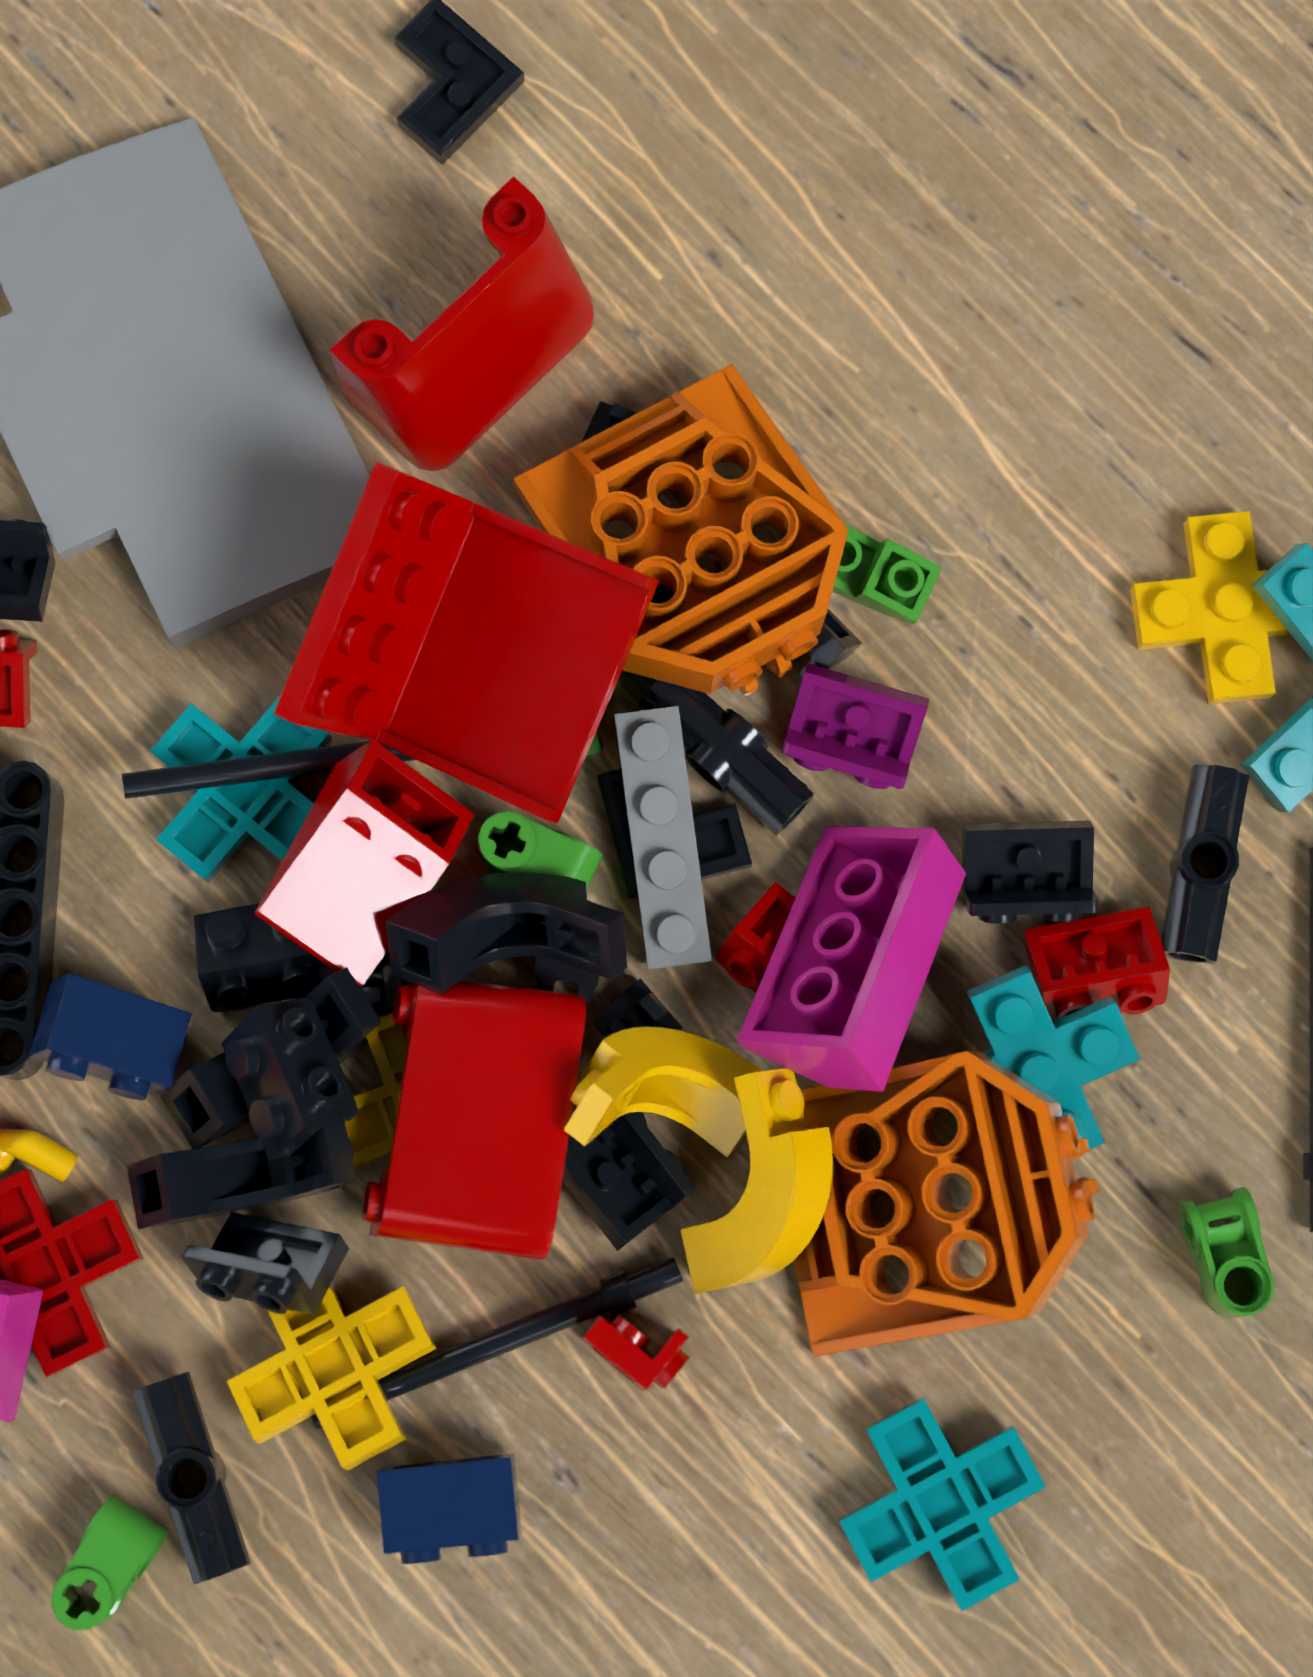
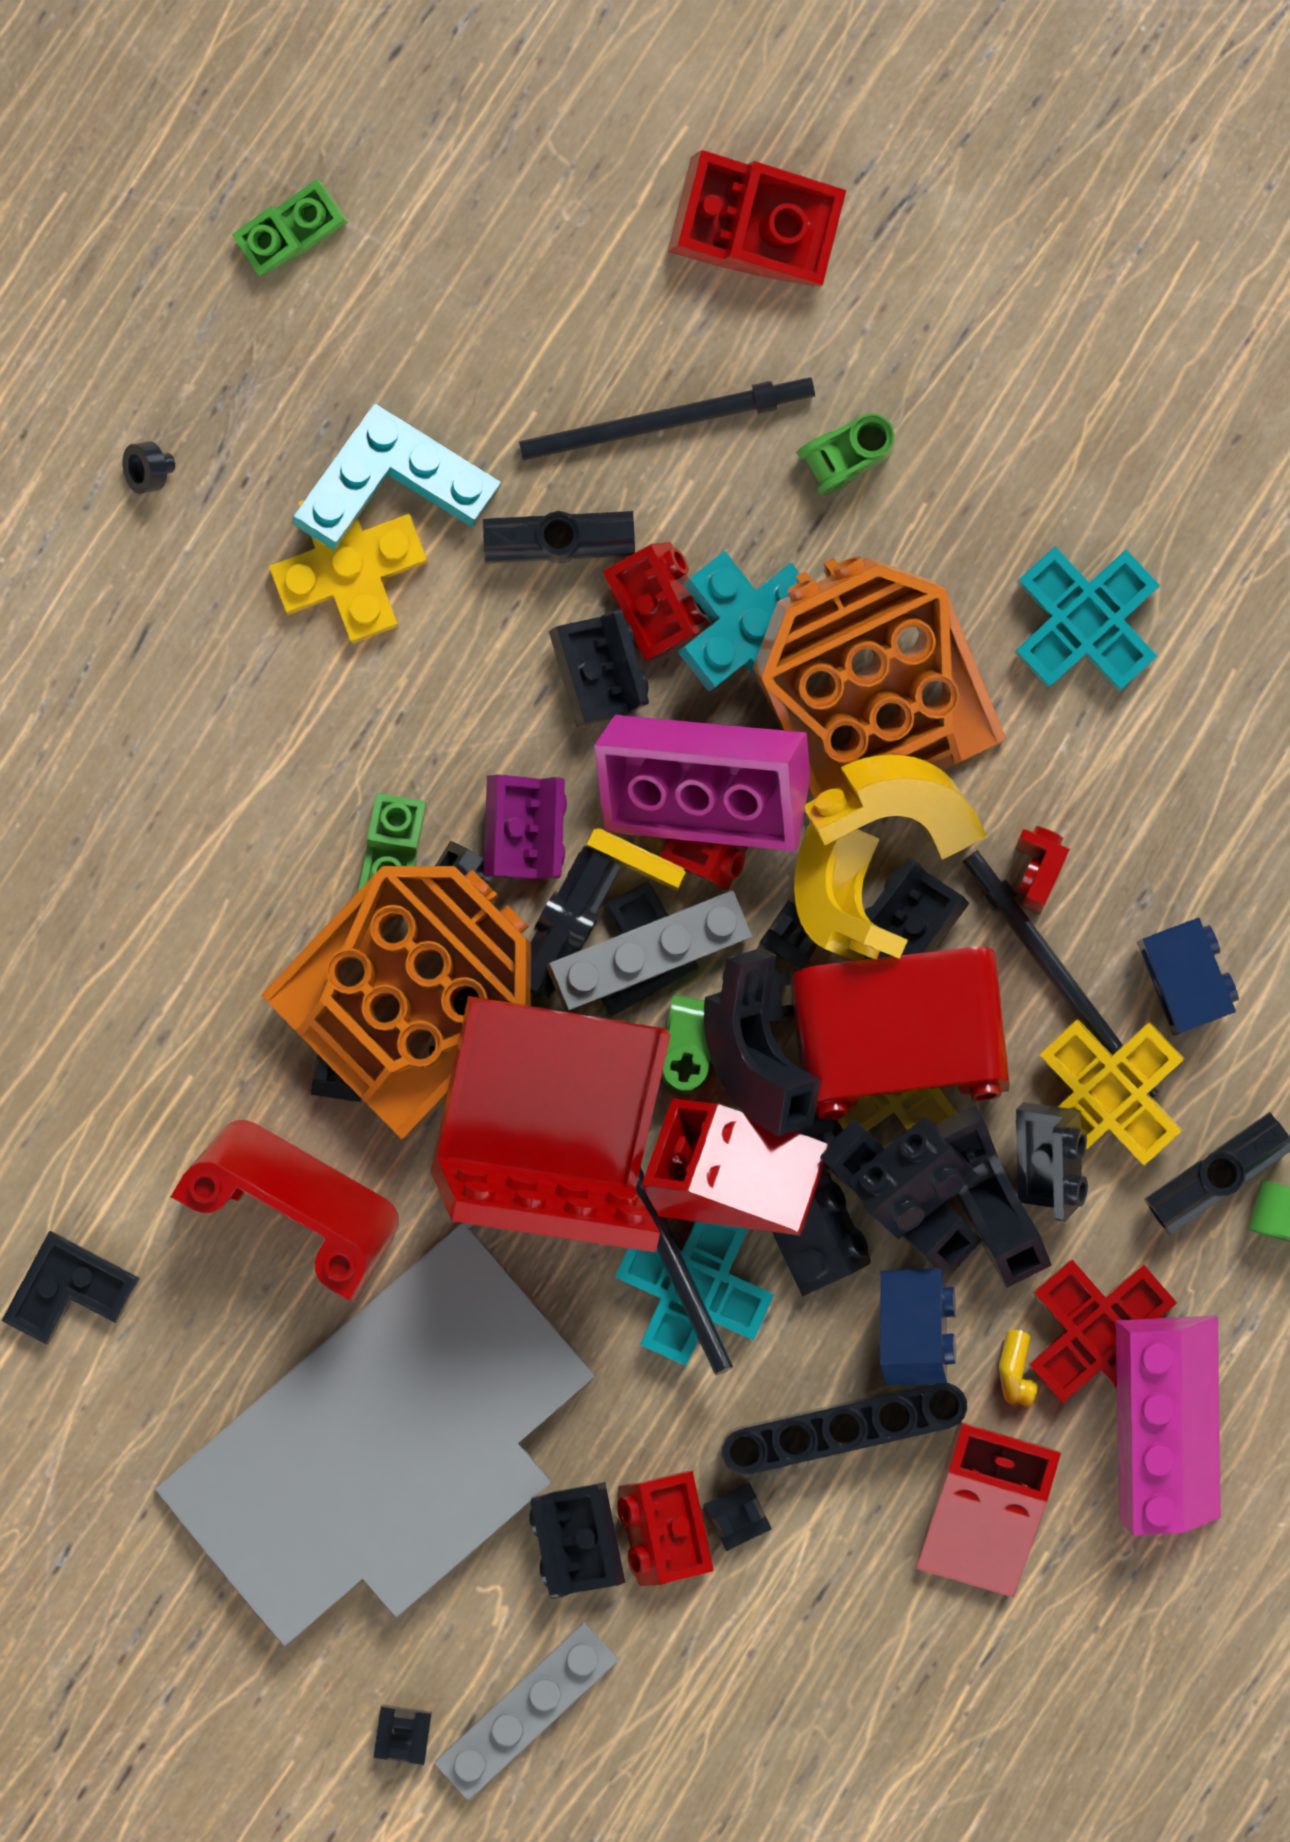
camera: 105 degrees left, 5 degrees up
(781, 853) = (637, 859): none -> yellow tile

